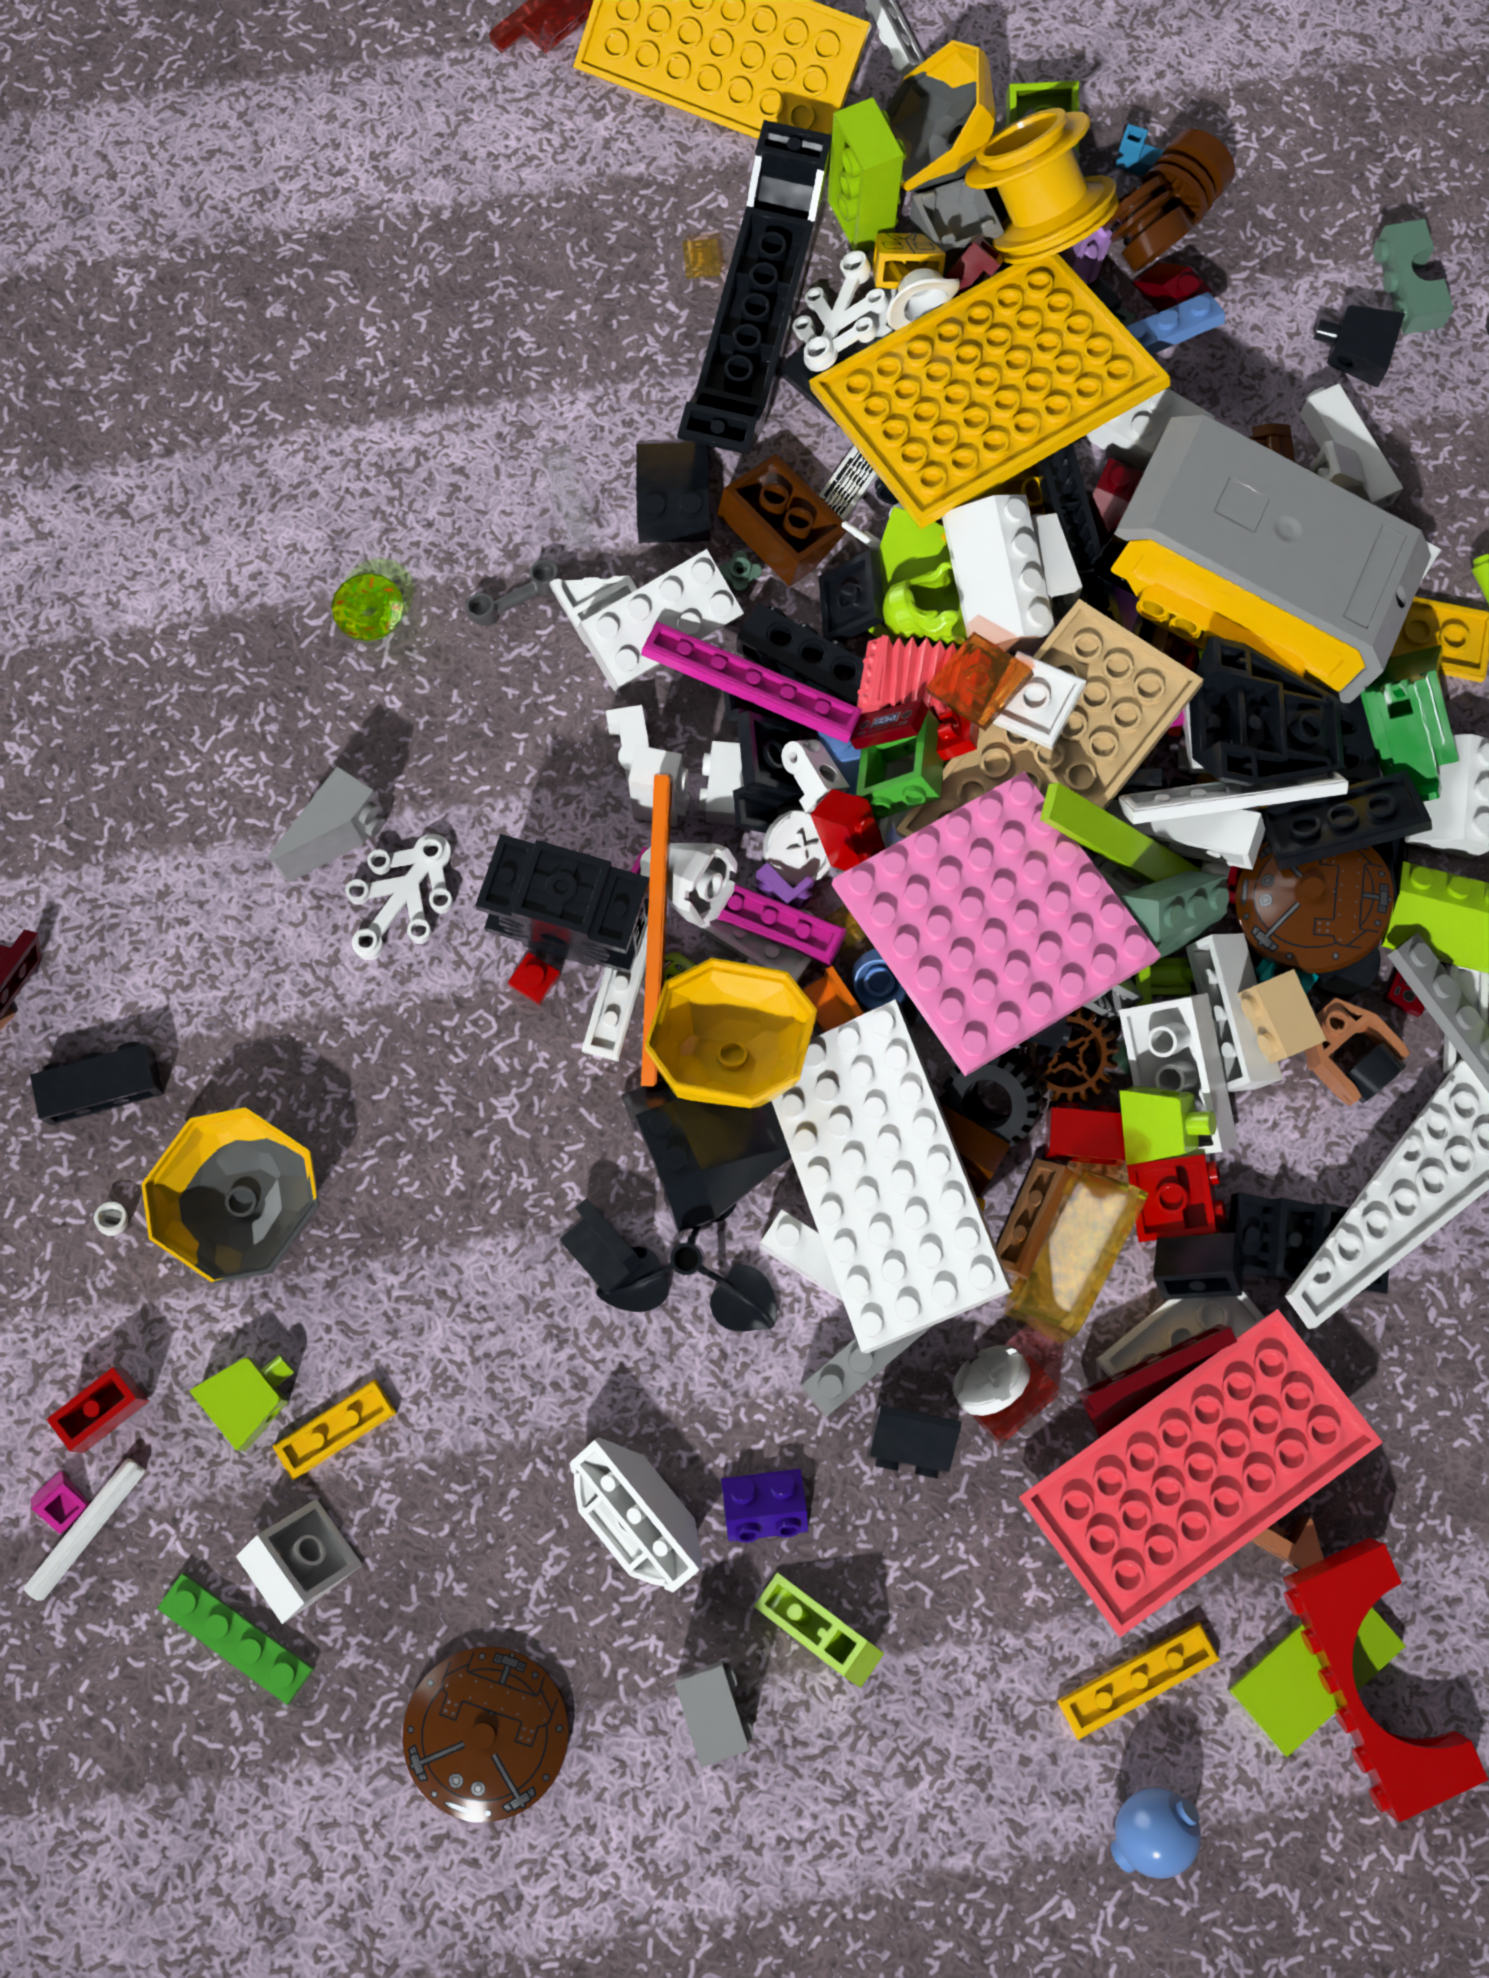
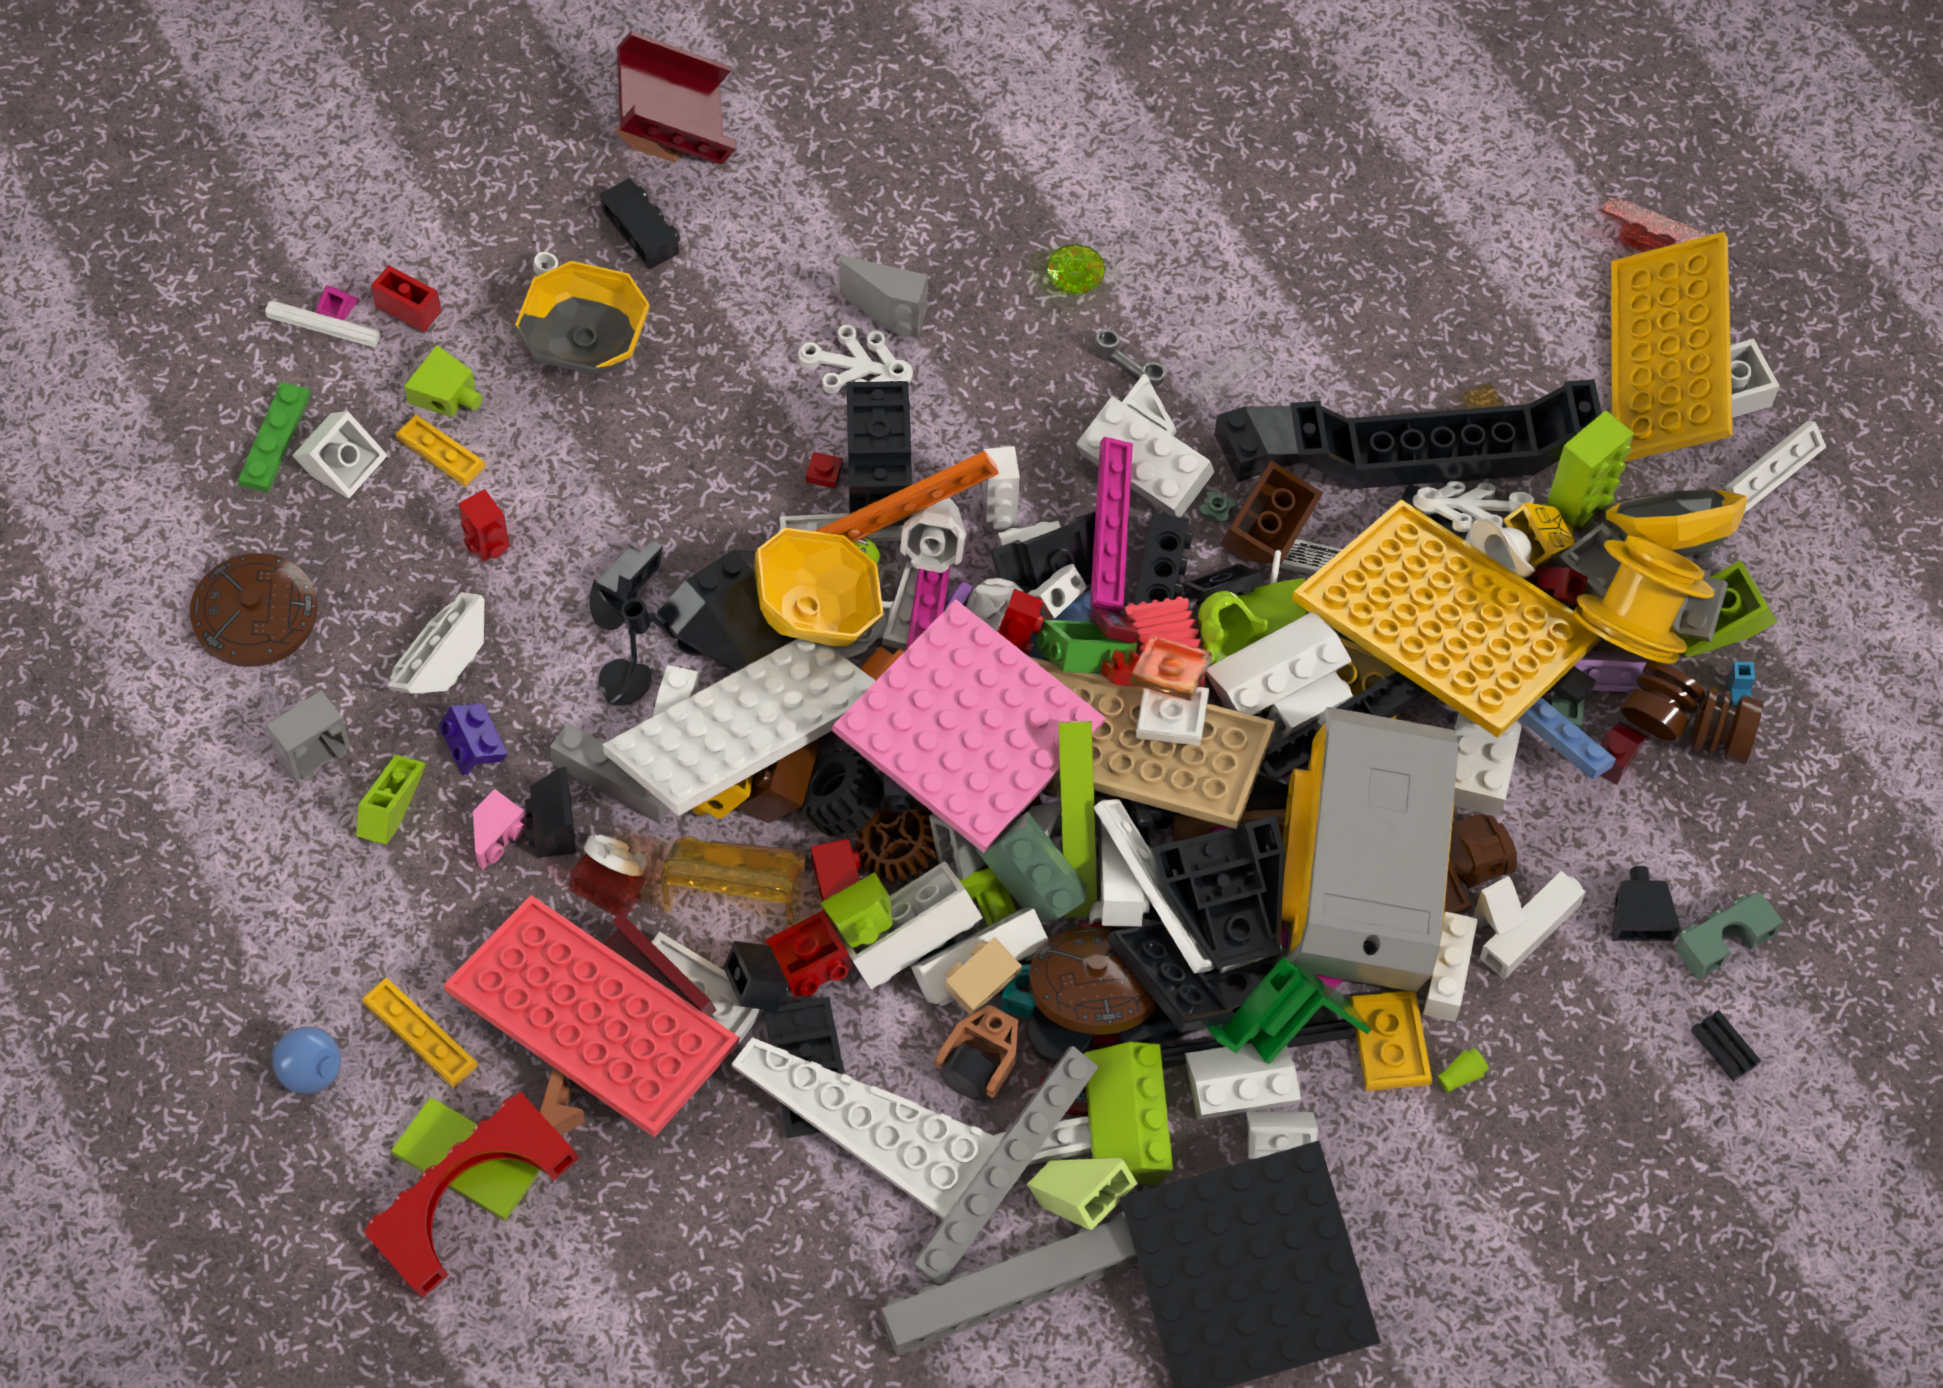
camera: 70 degrees right, 15 degrees down
(484, 1407) = (483, 526): none -> red brick
(631, 726) = (1043, 473): white leg -> none
(898, 1513) = (495, 825): none -> bright pink slope

